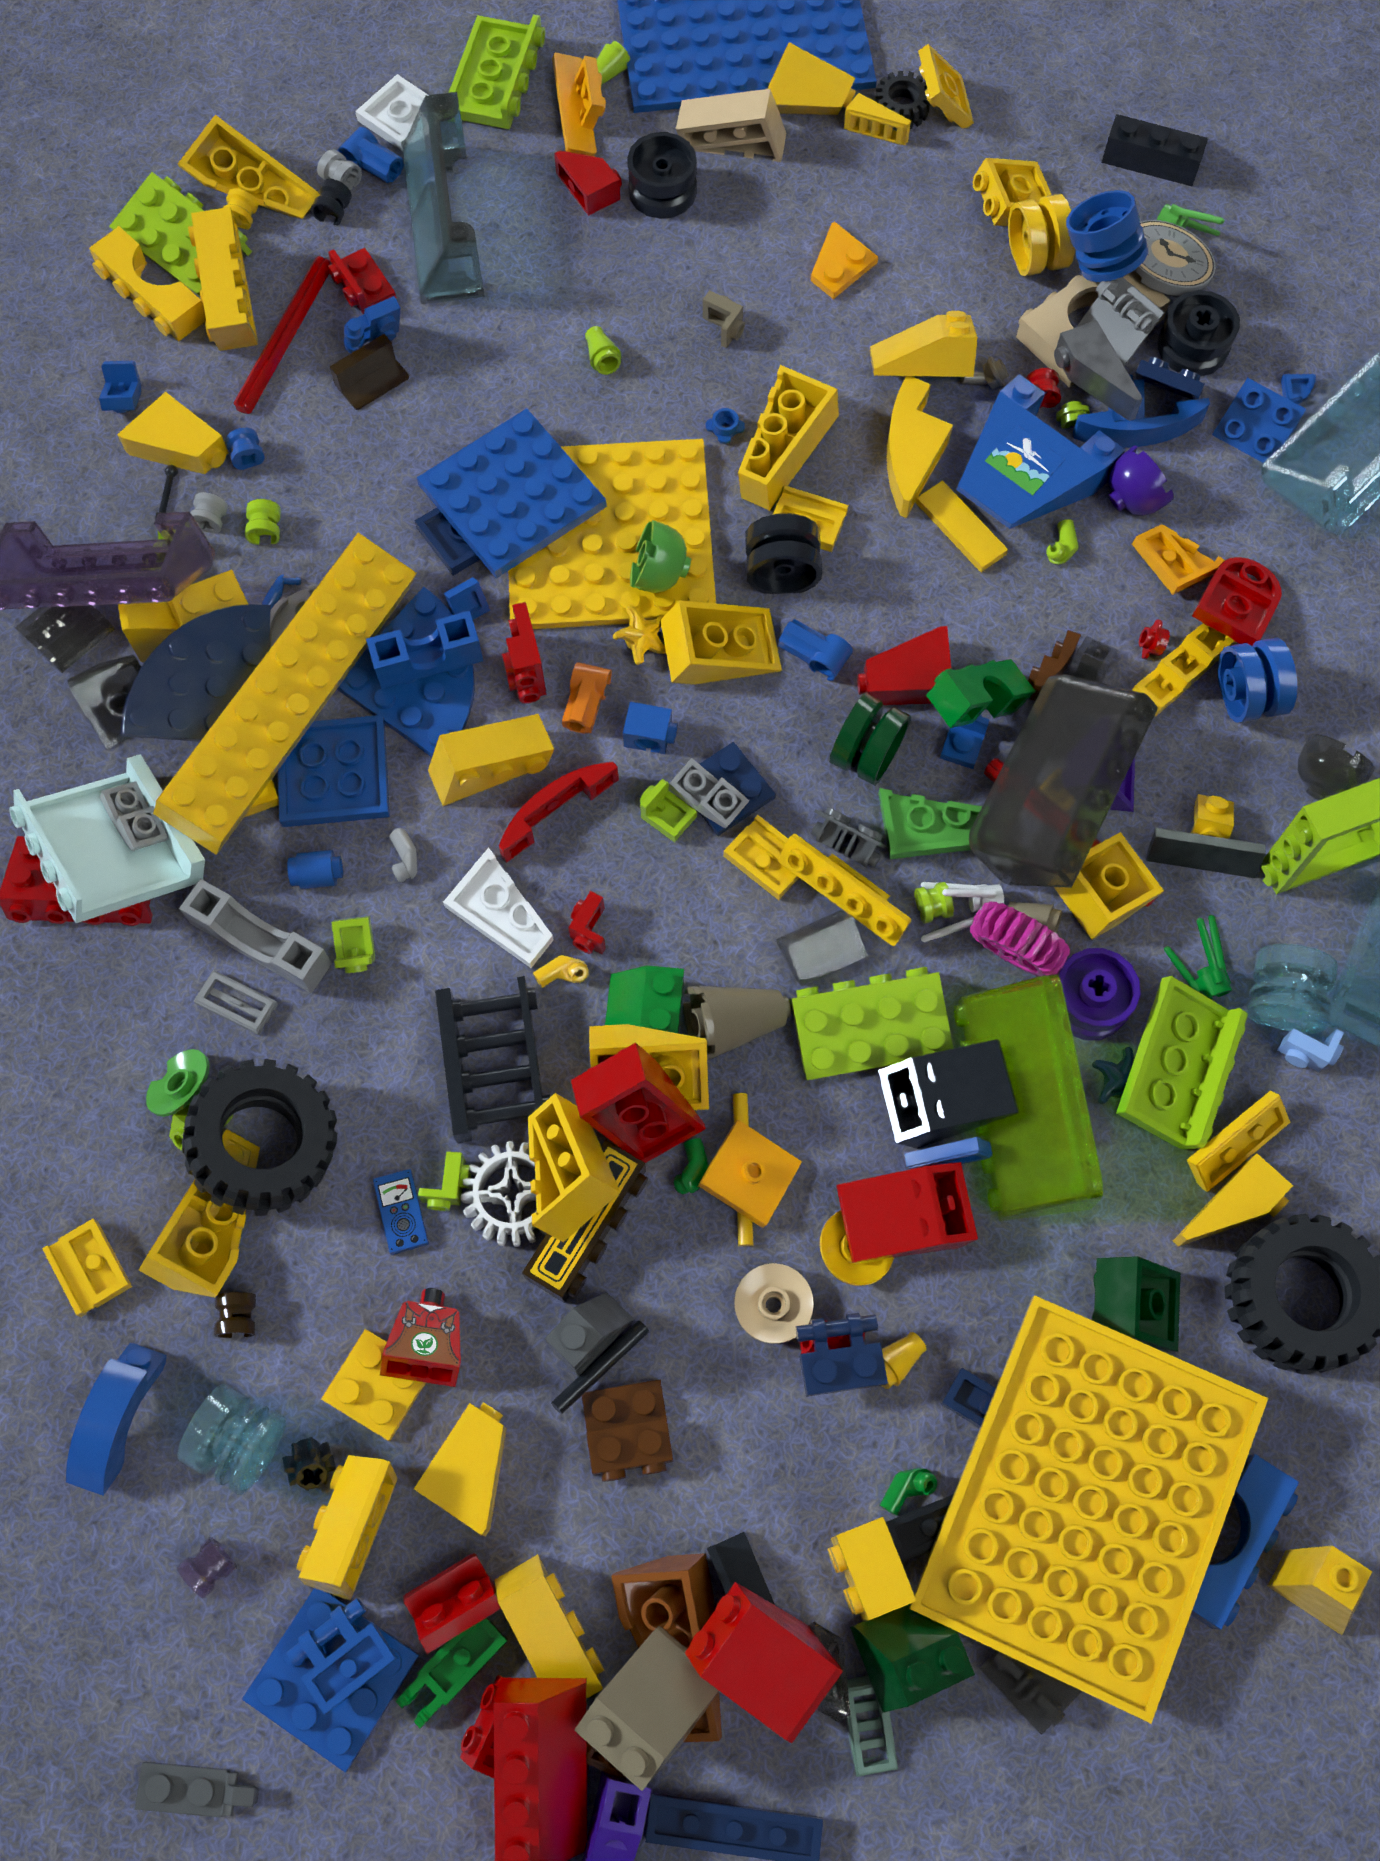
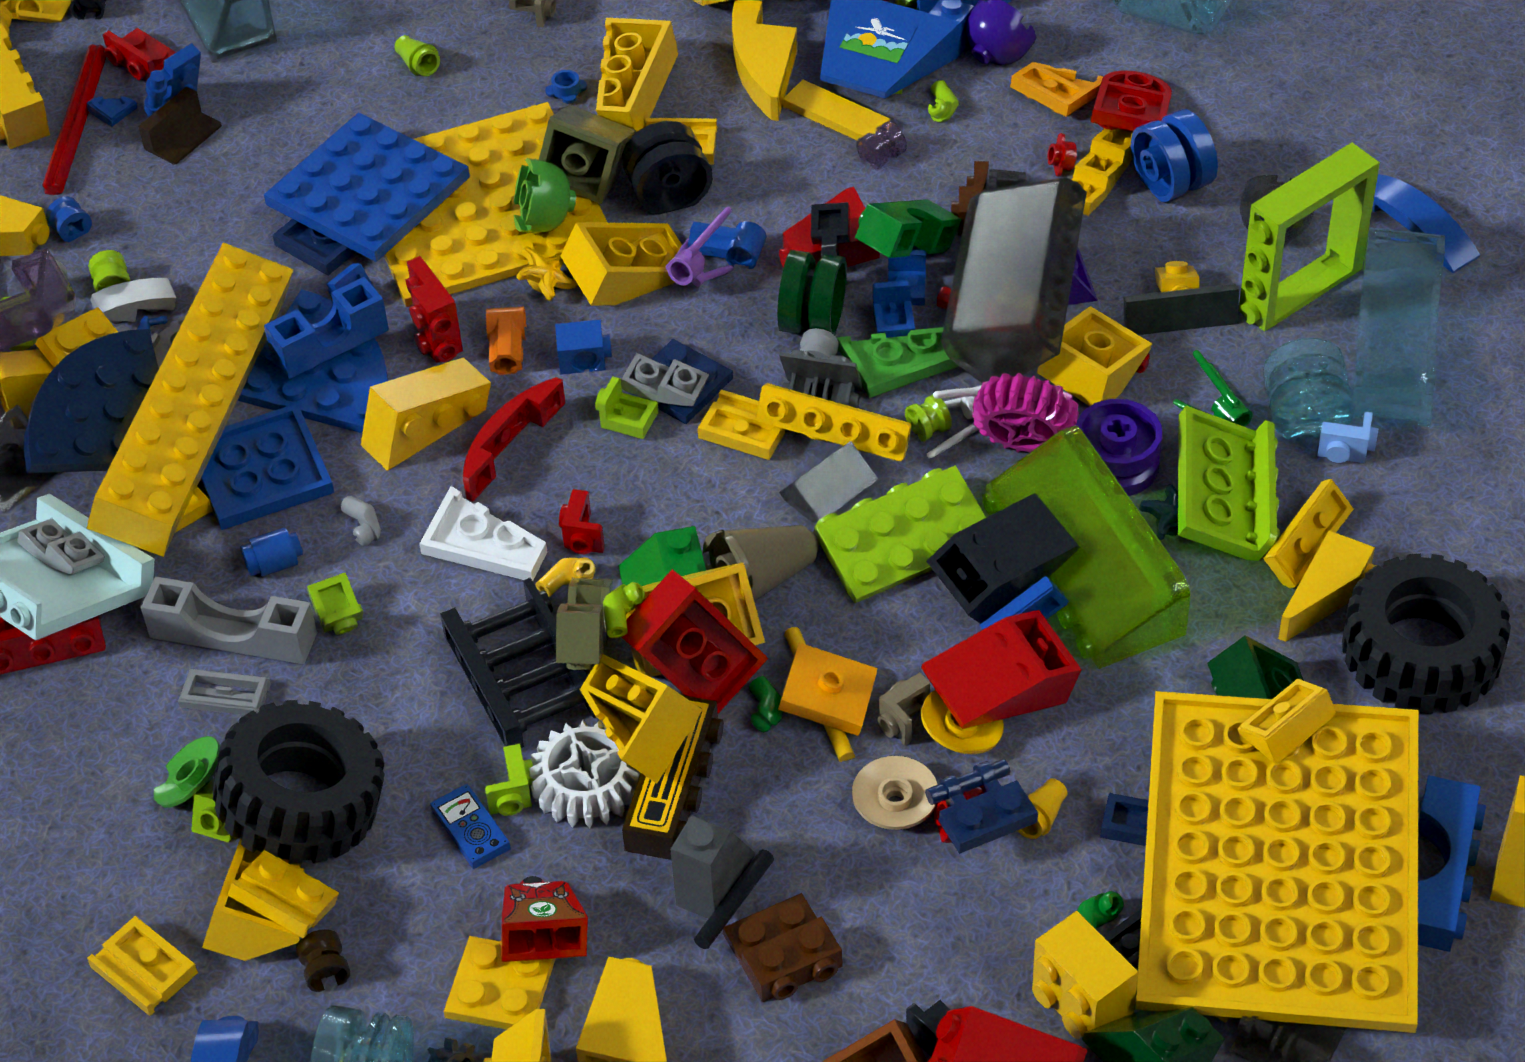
camera: 15 degrees left, 20 degrees down
(214, 1248) = (283, 894): none -> yellow plate
(266, 553) = (123, 299): none -> light grey slope
(318, 332) = (111, 109): none -> blue tile
(544, 1068) = (581, 624): none -> olive arch
(579, 1058) = (618, 604): none -> lime arm
(715, 514) = (586, 150): none -> olive slope
(769, 669) = (689, 262): none -> medium lavender plant
(813, 1205) = (900, 704): none -> dark tan bracket
(857, 797) = (819, 343): none -> light grey wheel
(908, 673) = (830, 226): none -> black plate
(940, 773) = (893, 308): none -> blue bracket
(990, 579) = (884, 143): none -> clear purple wheel
(1144, 1369) = (1288, 719): none -> yellow slope

